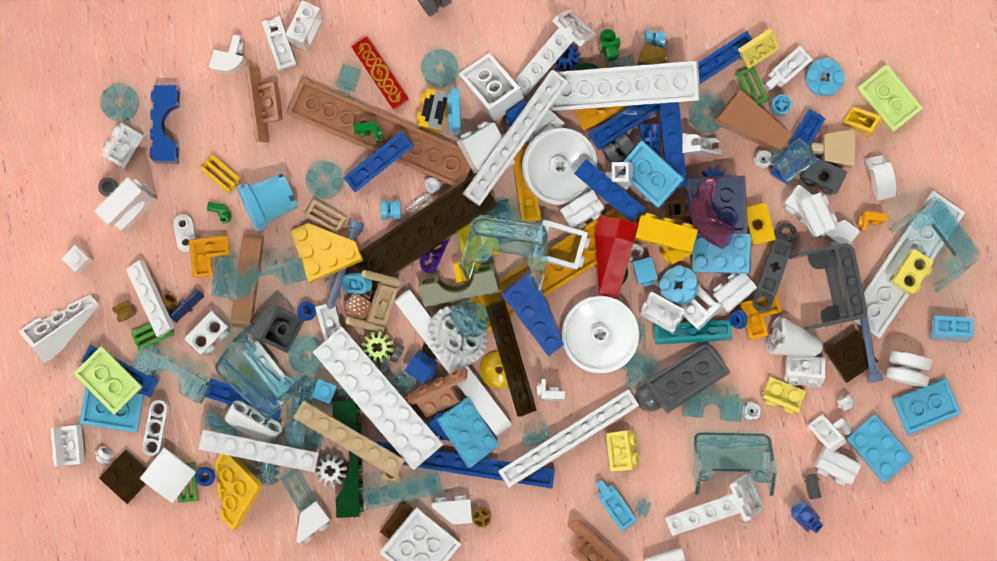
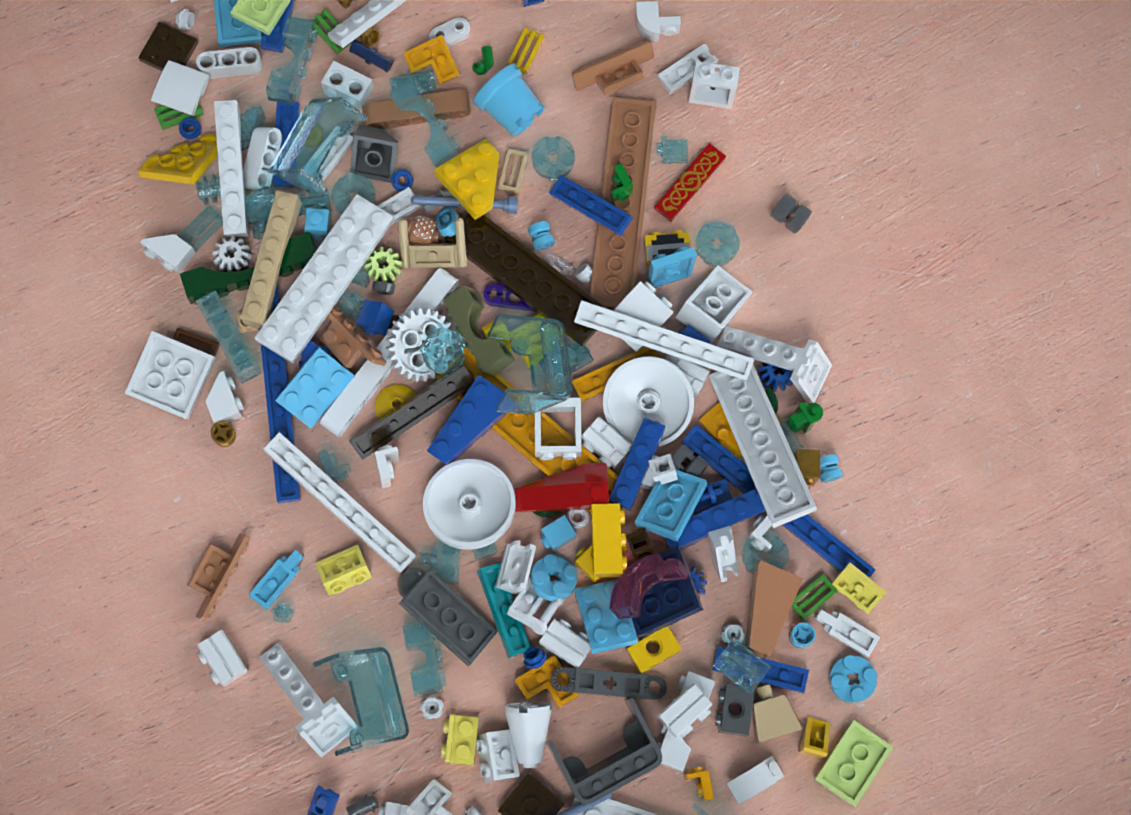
camera: 70 degrees right, 10 degrees down
(688, 108) = (758, 541): none -> white bracket

